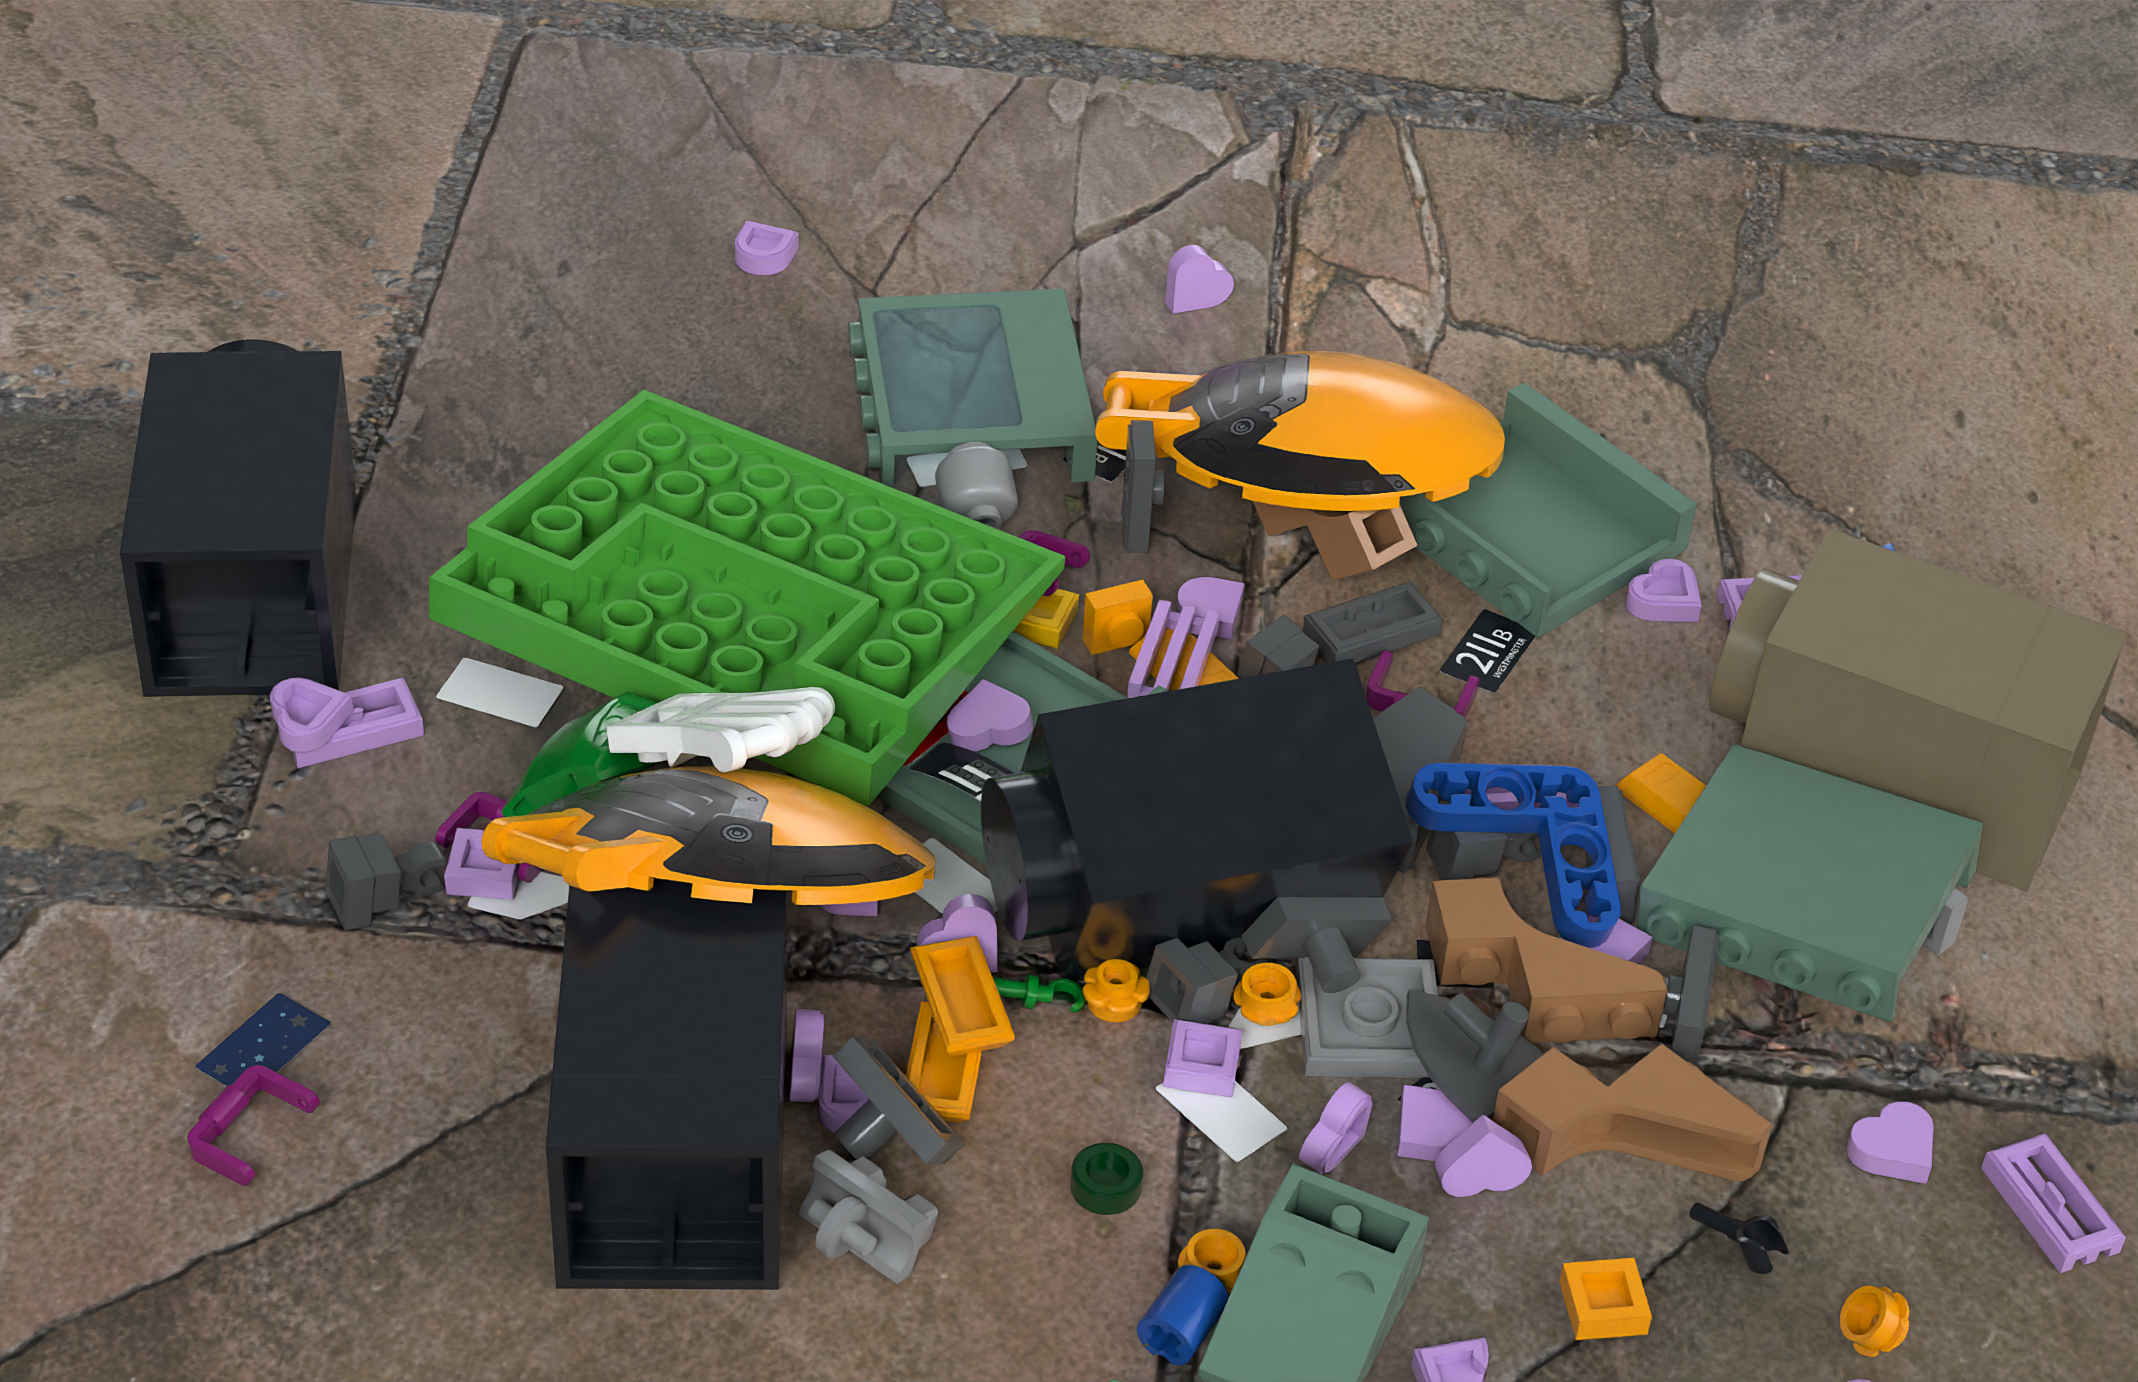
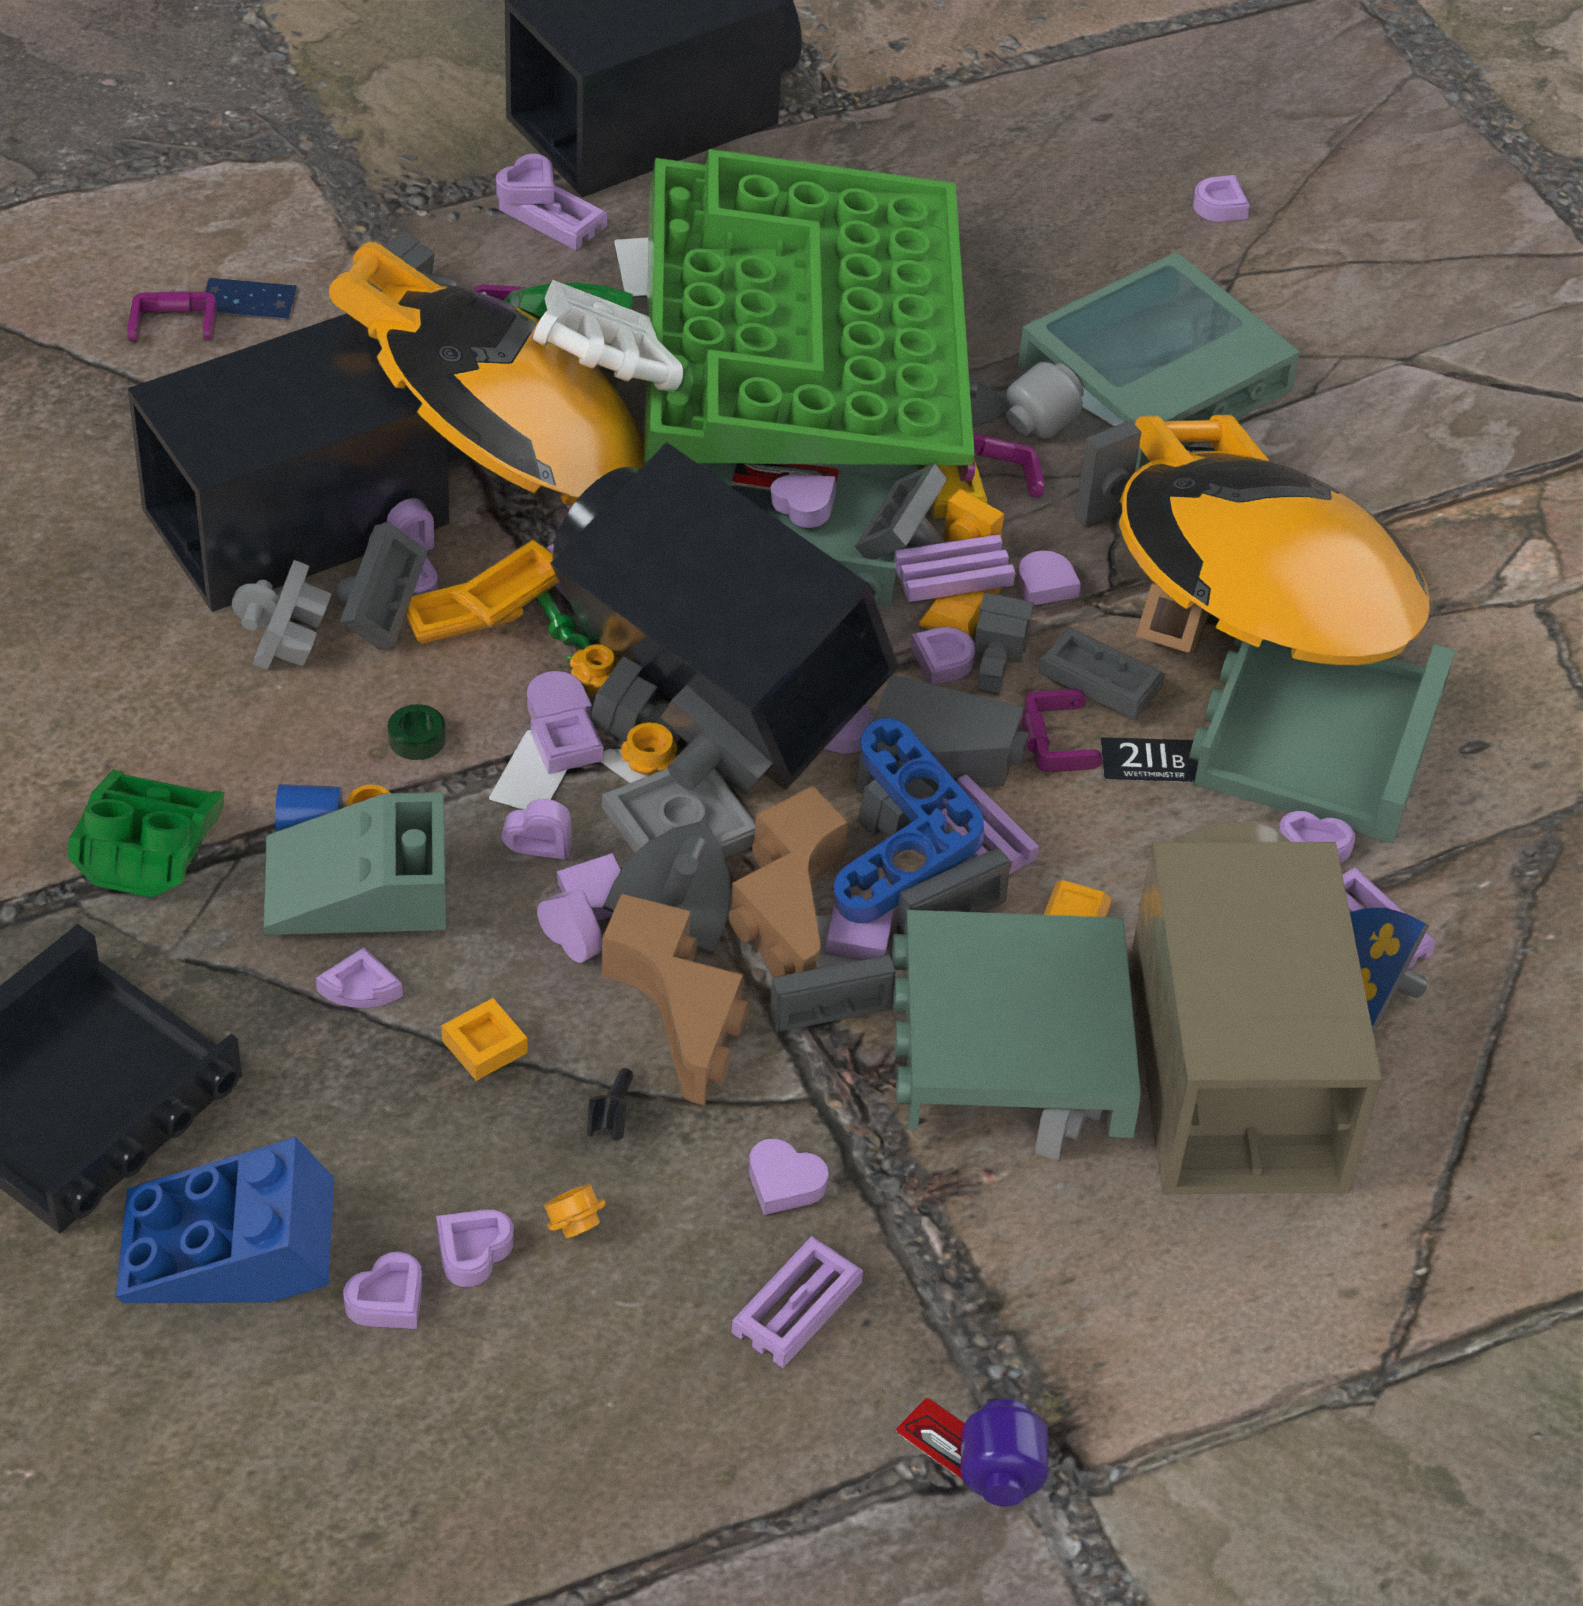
camera: 60 degrees right, 5 degrees up
(1081, 650) = (902, 515): none -> dark grey tile
(1136, 1042) = (555, 693): none -> lavender tile
(1196, 281) = (1410, 429): lavender tile -> none

